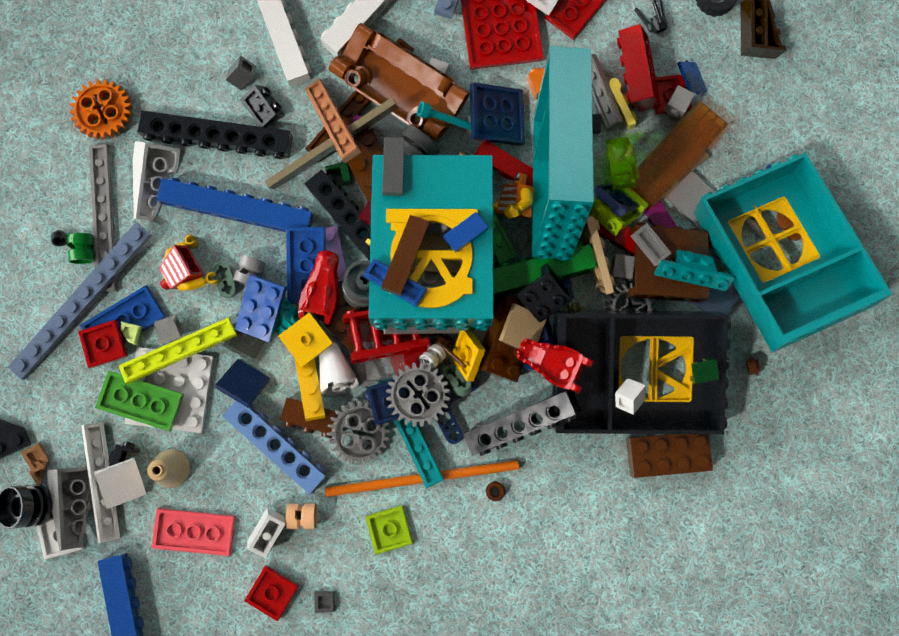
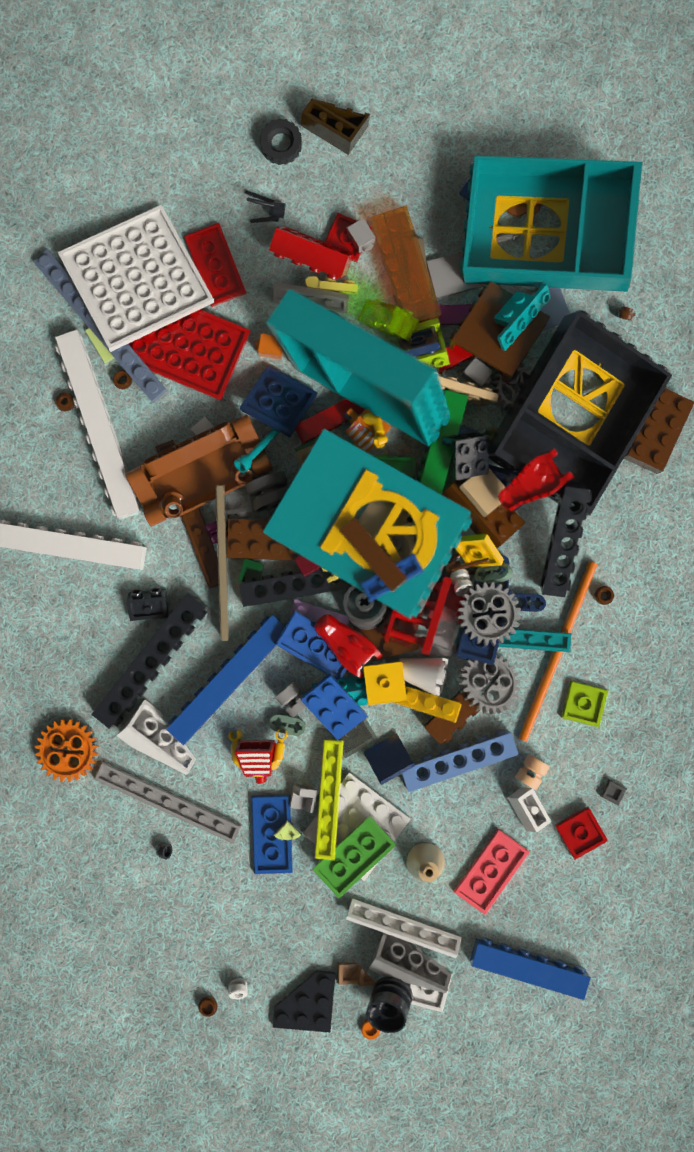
camera: 60 degrees left, 5 degrees up
(79, 301) = (233, 861): sand blue plate -> none
(80, 248) = (186, 836): green wheel -> none
(102, 344) = (284, 862): red plate -> none
(120, 452) = (390, 901): black bracket -> none
(120, 483) = (416, 911): white tile -> none
(240, 73) = (105, 606): dark grey panel -> none
(332, 121) = (203, 549): nougat tile -> none
(393, 166) = (285, 520): dark grey tile -> none
(465, 232) = (382, 491): blue tile -> none
(630, 396) = (597, 434): white panel -> none
(650, 244) = (476, 338): light grey tile -> none
(692, 77) = (344, 210): clear blue piece -> none
(705, 370) = (614, 358): dark green panel -> none

